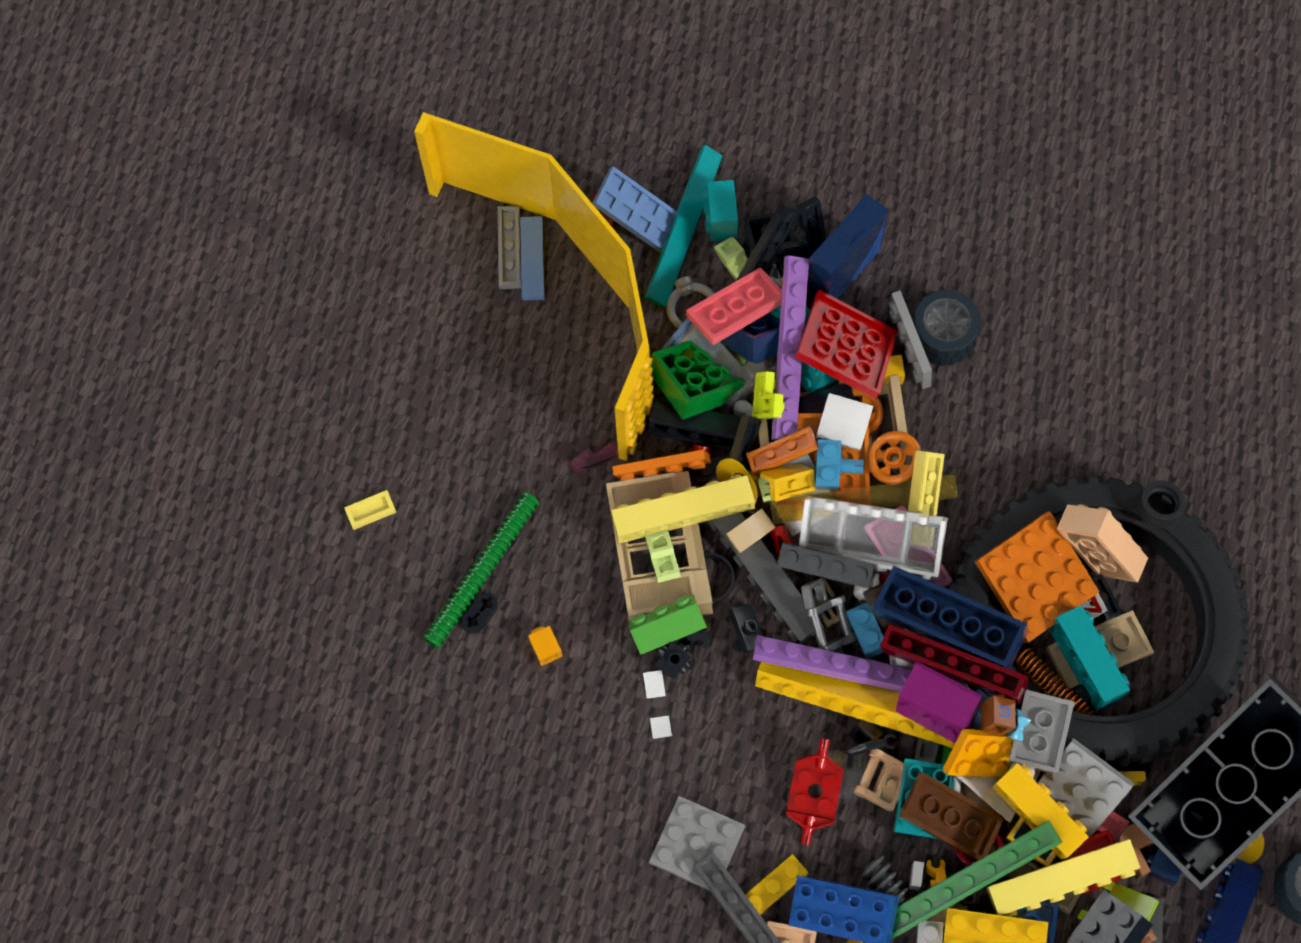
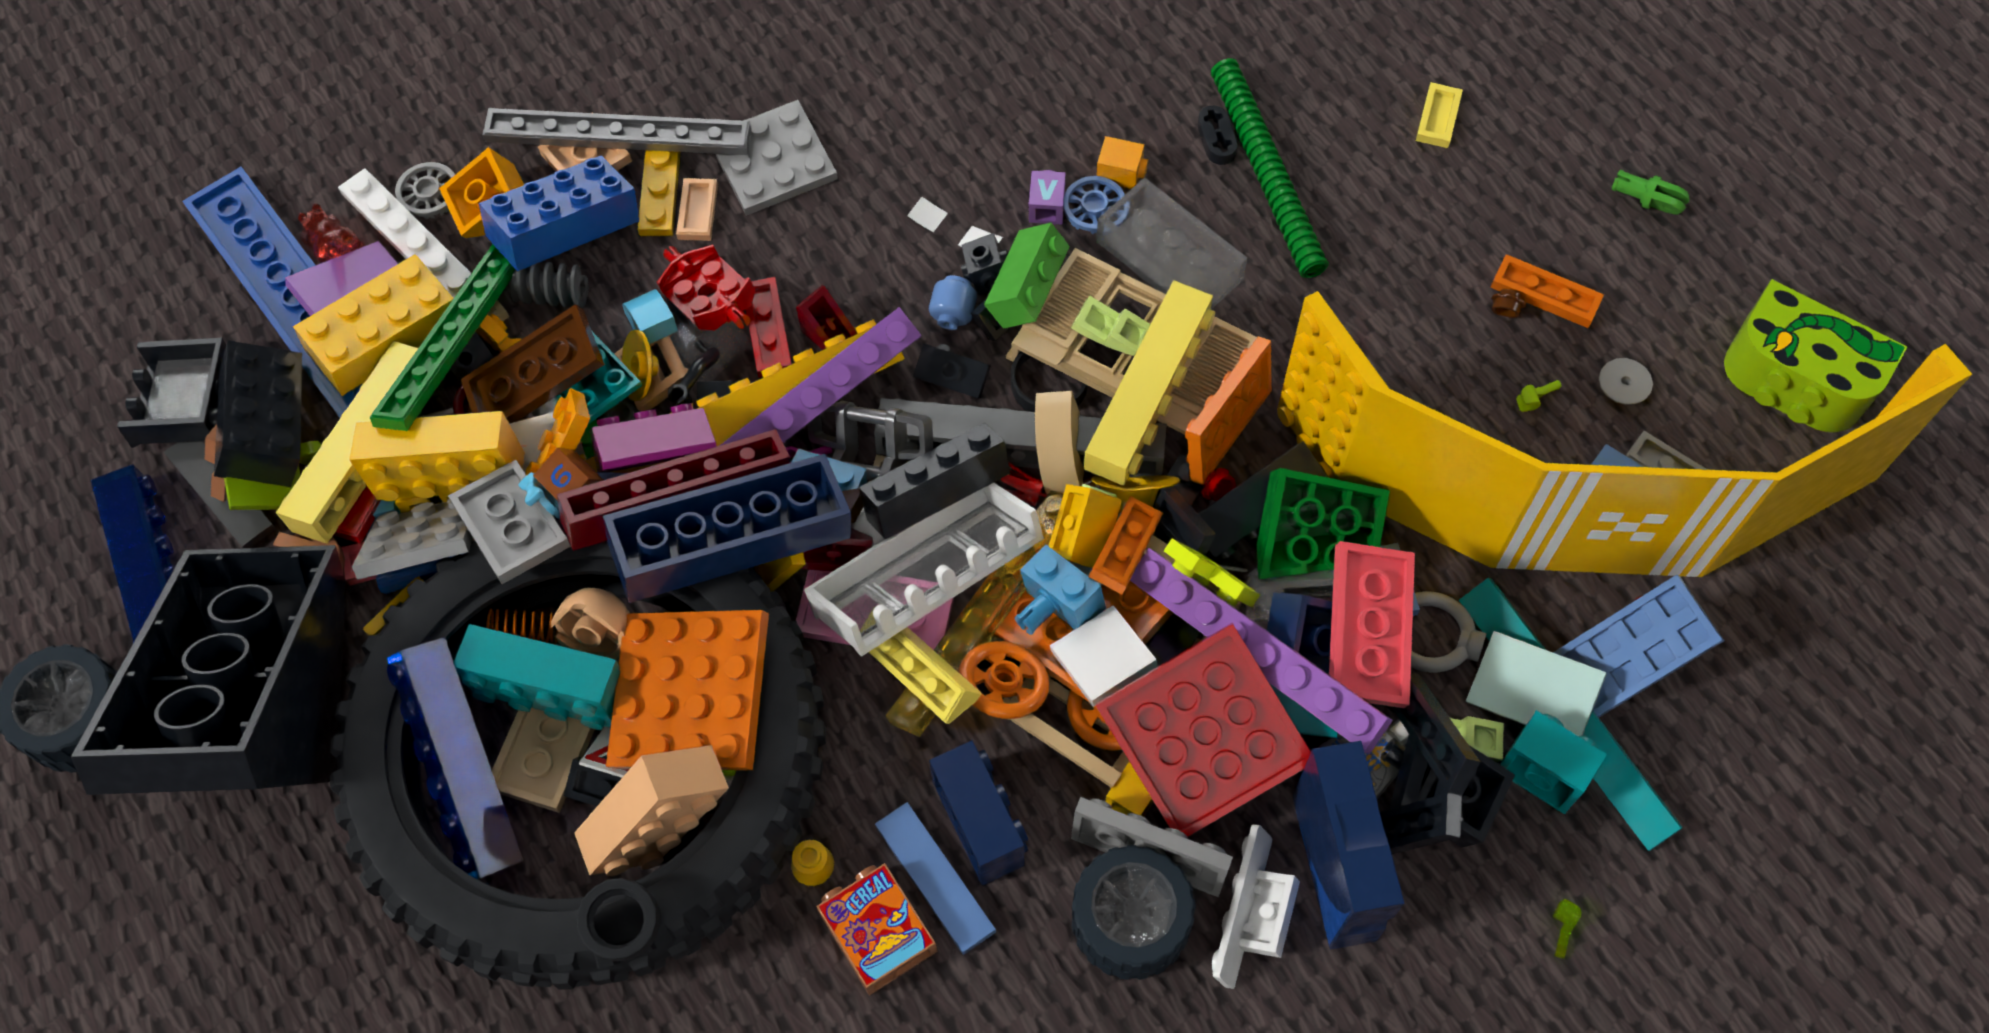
camera: 130 degrees right, 5 degrees down
(341, 370) = (1652, 192): none -> bright green arm
(402, 232) = (1810, 360): none -> lime brick
(449, 380) = (1548, 291): none -> orange plate
(474, 392) = (1507, 303): none -> reddish brown plate
(475, 311) = (1625, 381): none -> light grey piece
(522, 349) = (1529, 396): none -> lime hand
(580, 642) = (1093, 202): none -> medium blue wheel
(583, 572) = (1169, 244): none -> clear brick
(599, 666) = (1046, 197): none -> medium lavender brick
(687, 241) = (1525, 678): none -> light aqua tile
(708, 659) = (953, 302): none -> medium blue head
(765, 855) = (697, 209): none -> light nougat tile
(778, 713) = (822, 318): none -> dark red slope
(781, 166) = (1569, 914): none -> clear neon green hand
(805, 743) = (767, 326): none -> red plate
(859, 803) = (650, 315): none -> medium azure brick
(891, 776) = (640, 361): none -> yellow dish
(893, 279) = (1257, 912): none -> white bracket
(916, 875) = (523, 317): white tile -> none
(962, 420) = (979, 811): none -> dark blue brick
(1002, 426) = (935, 878): none -> medium blue tile
(1042, 658) = (591, 622): none -> light nougat cylinder
(1044, 476) = (812, 863): none -> yellow hat
(1048, 428) = (876, 927): none -> brick
(1162, 659) = (453, 758): none -> clear blue brick

